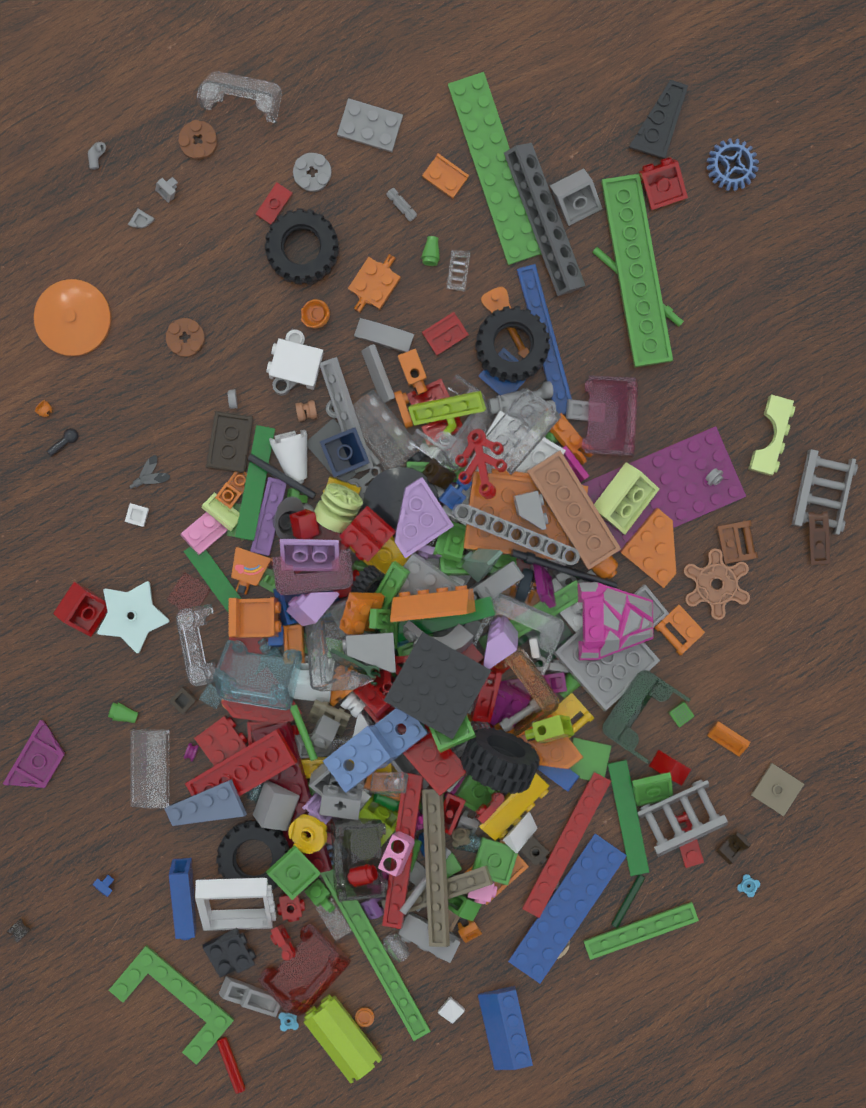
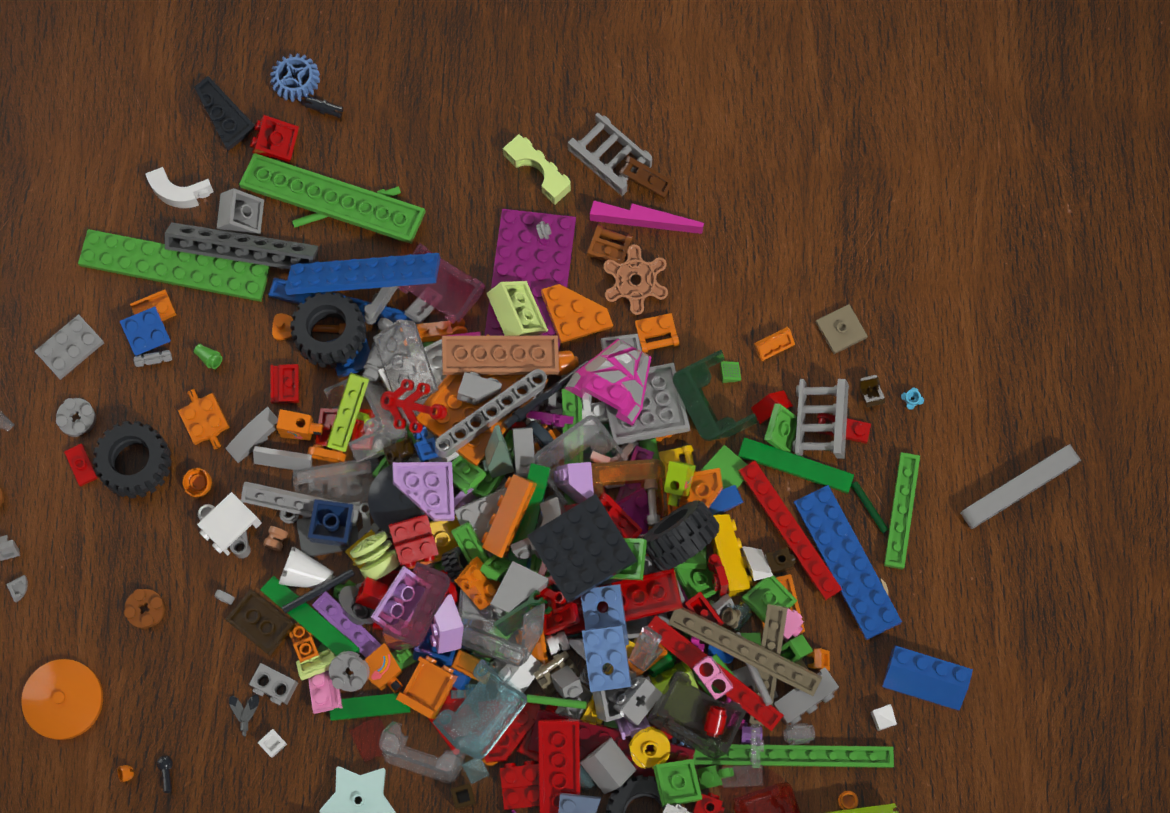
camera: 60 degrees left, 15 degrees down
(189, 485) = (275, 680): none -> light grey brick
(220, 544) = (341, 679): none -> light grey plate
(363, 919) = (756, 746): none -> clear plate
(421, 183) = (145, 331): none -> blue plate
(458, 253) = (231, 329): clear slope -> none
(558, 128) = (174, 195): none -> white arch
(568, 371) = (379, 301): none -> light grey plate
(577, 345) = (363, 273): none -> blue plate
(719, 208) = (324, 107): none -> black pin
(721, 1021) = (1020, 486): none -> light grey beam
(780, 556) = (643, 217): none -> dark pink slope

